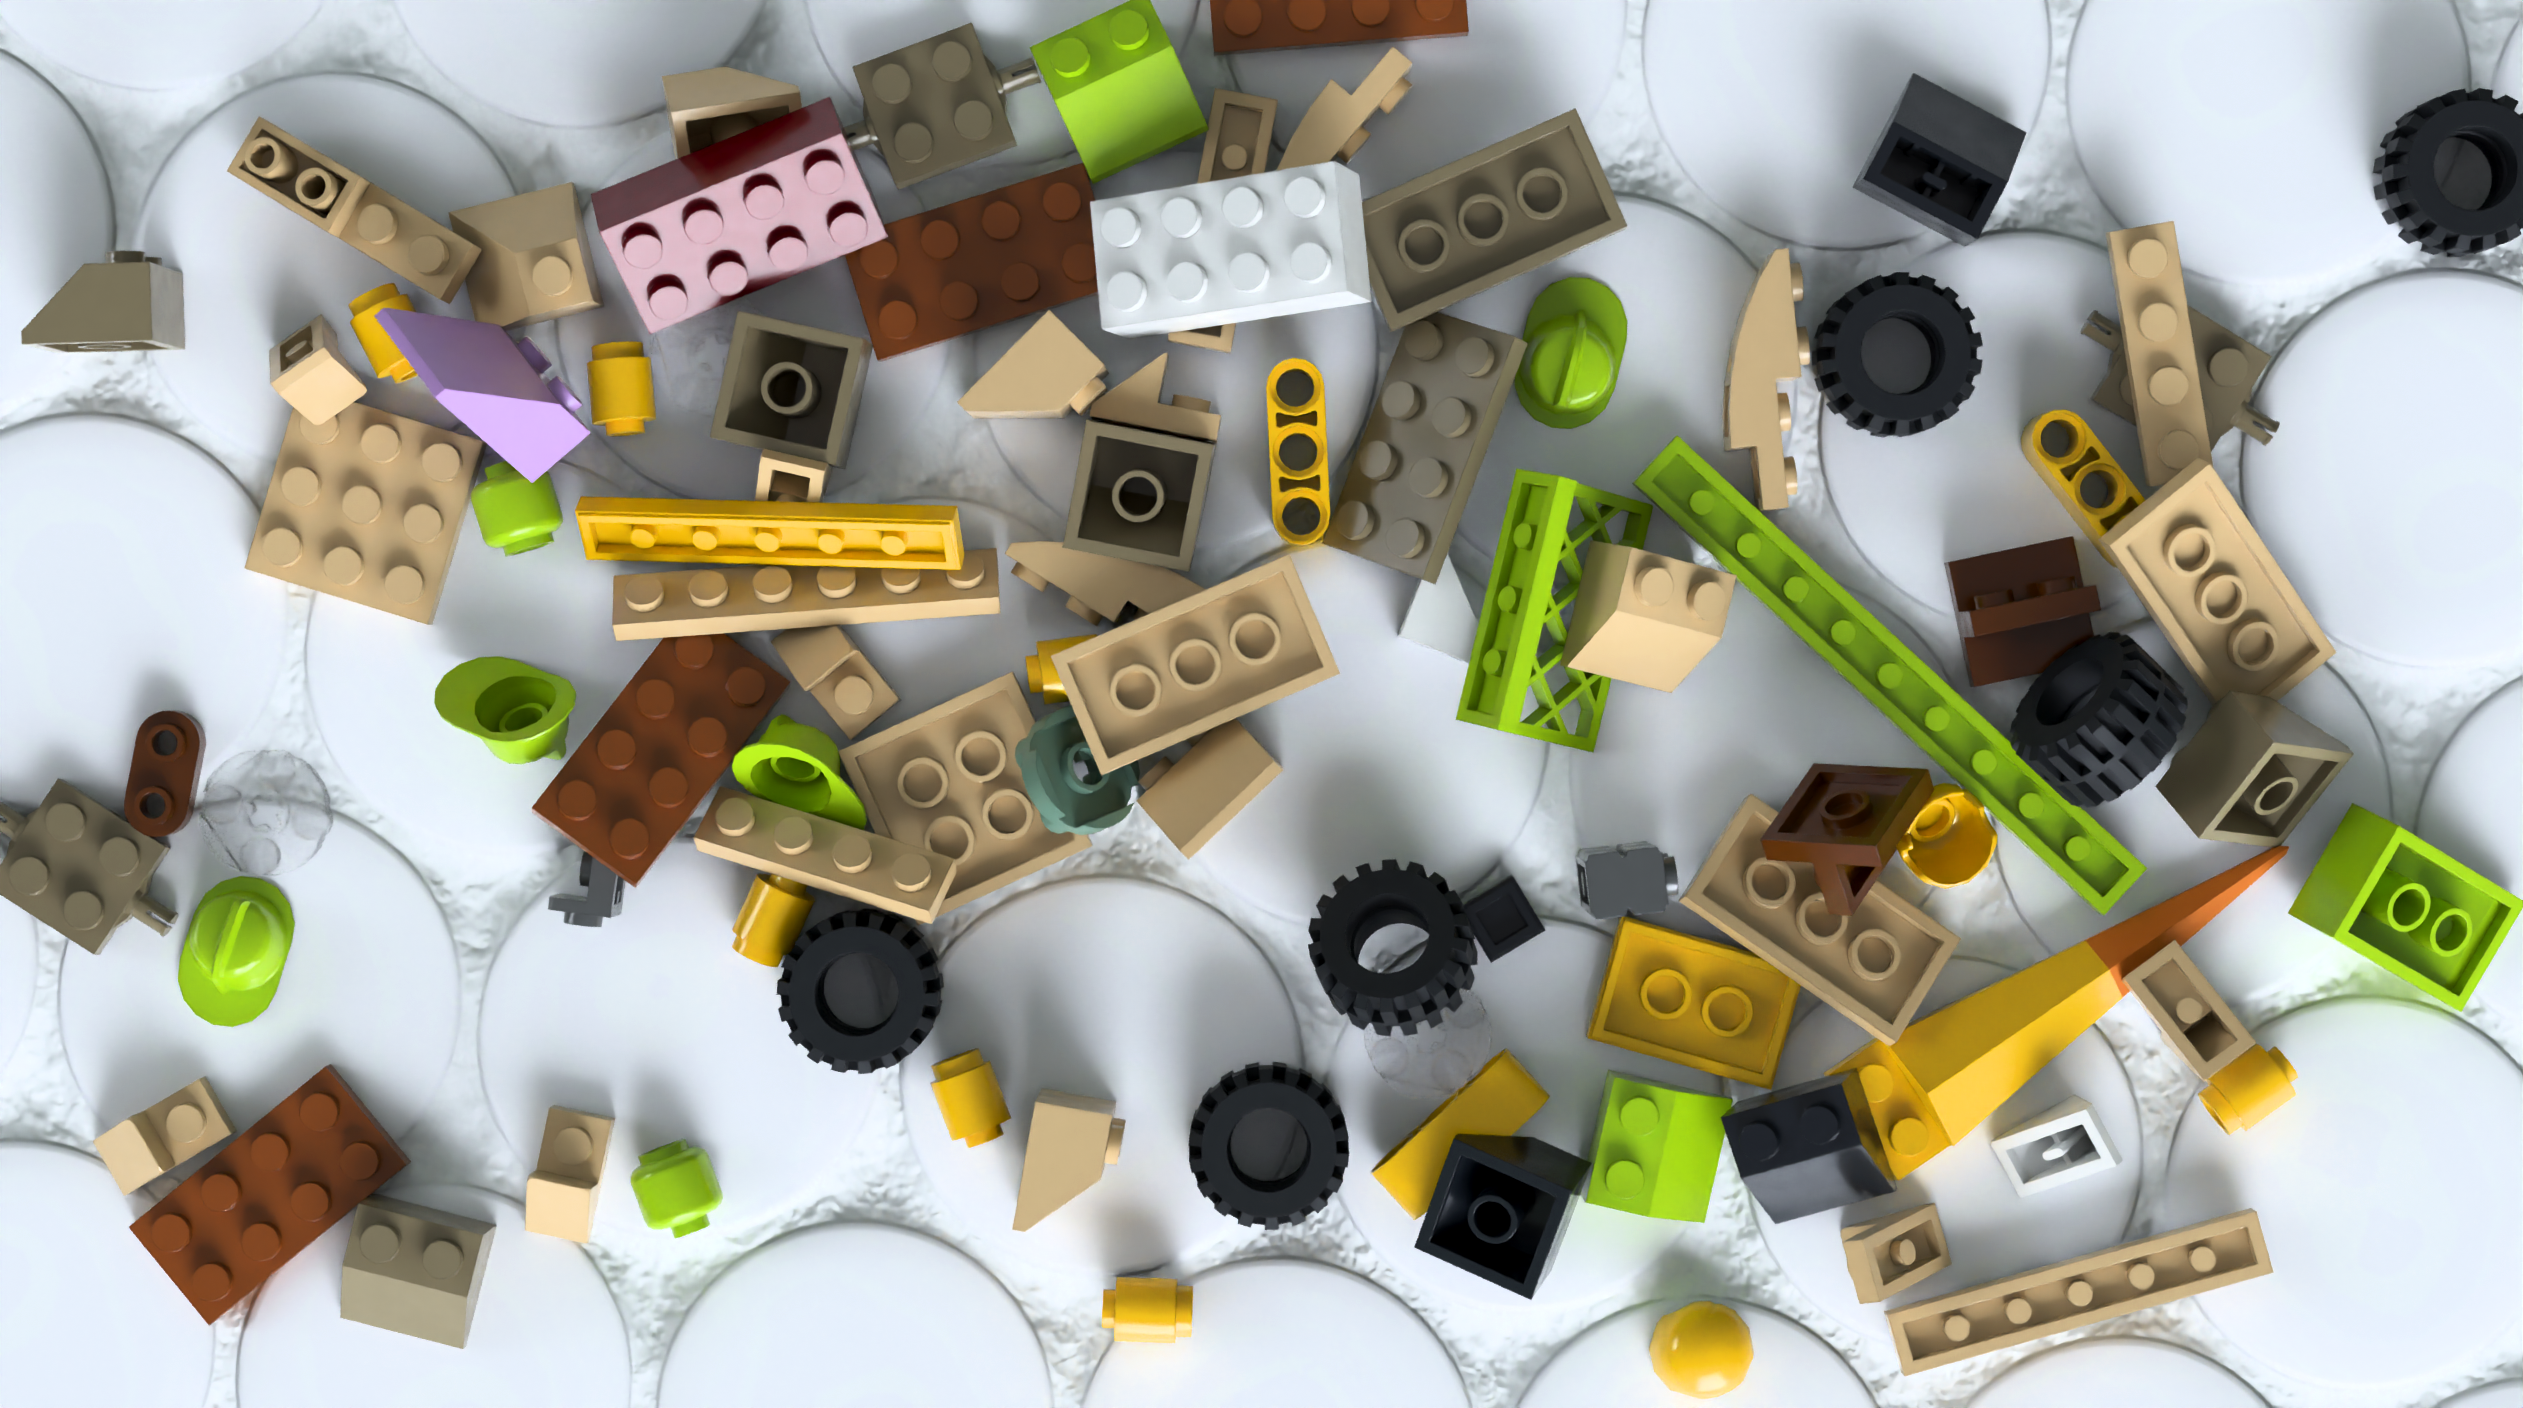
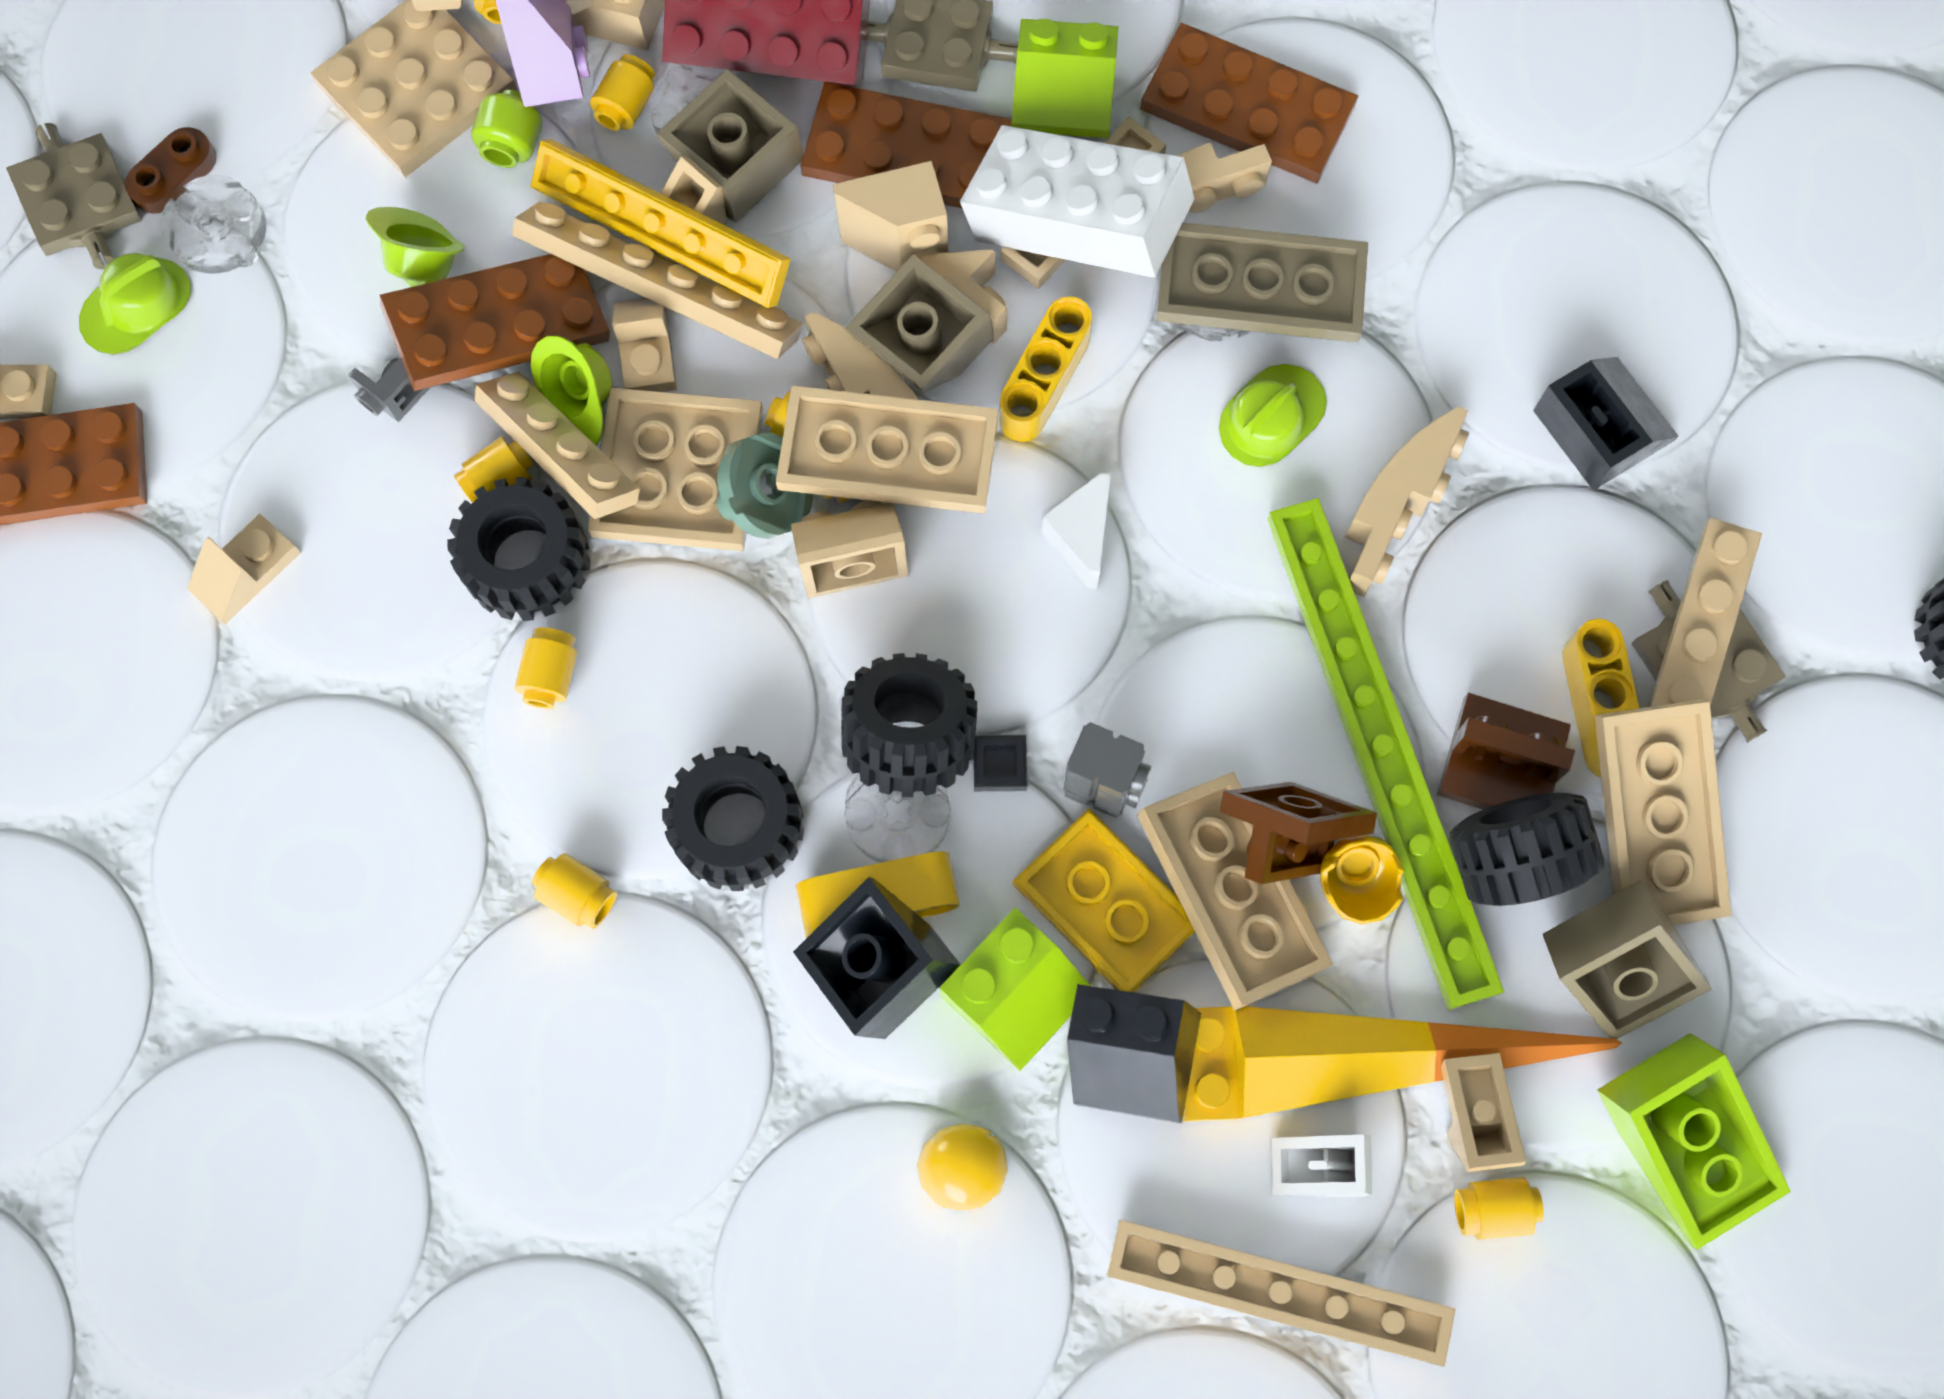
camera: 35 degrees right, 15 degrees down
(414, 1269) = (92, 567): dark tan slope -> none
(676, 1188) = (305, 614): lime head -> none
(1065, 1152) = (580, 735): tan slope -> none
(1425, 444) = (1136, 406): dark tan plate -> none
(1522, 601) = (1147, 527): lime fence -> none
(1645, 616) = (1227, 599): tan slope -> none
(1894, 1251) = (1153, 1173): tan slope -> none
(1950, 343) = (1531, 496): black tyre -> none

